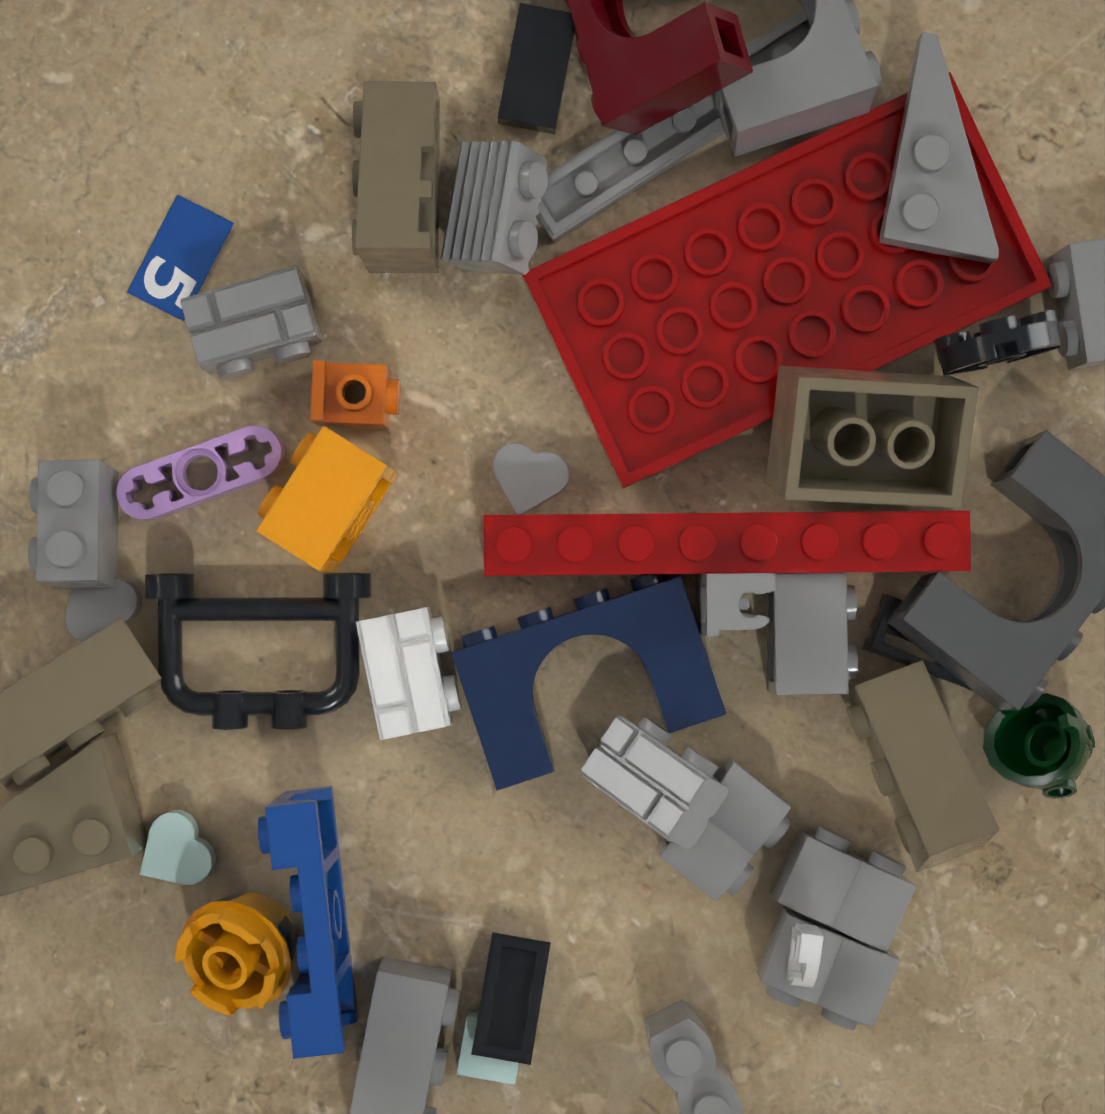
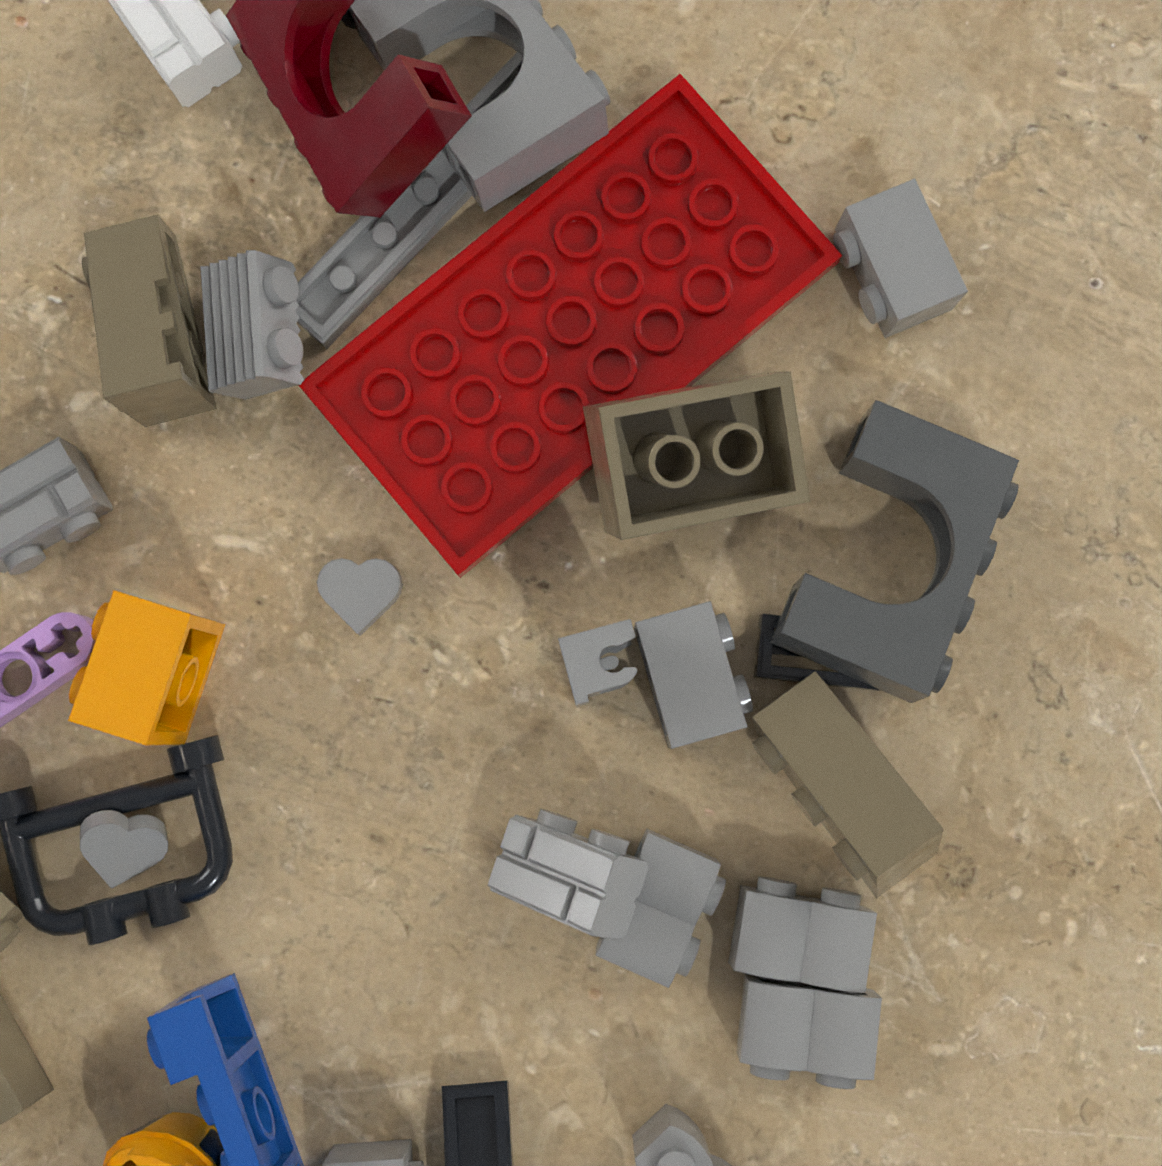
camera: 10 degrees left, 5 degrees down
(176, 850) = (82, 1088): light aqua tile -> none
(262, 648) = (122, 845): none -> light grey tile
(329, 400) = (128, 560): orange brick -> none
(407, 672) = (280, 828): white brick -> none
(502, 669) = (380, 801): dark blue arch -> none
(537, 69) = (264, 180): black tile -> none
(727, 543) = (538, 612): red brick -> none
(805, 945) = (776, 1021): white tile -> none
(934, 184) = (693, 186): light grey wing -> none
(999, 342) = (802, 323): black plate -> none
(1040, 745) = (965, 728): dark green helmet -> none

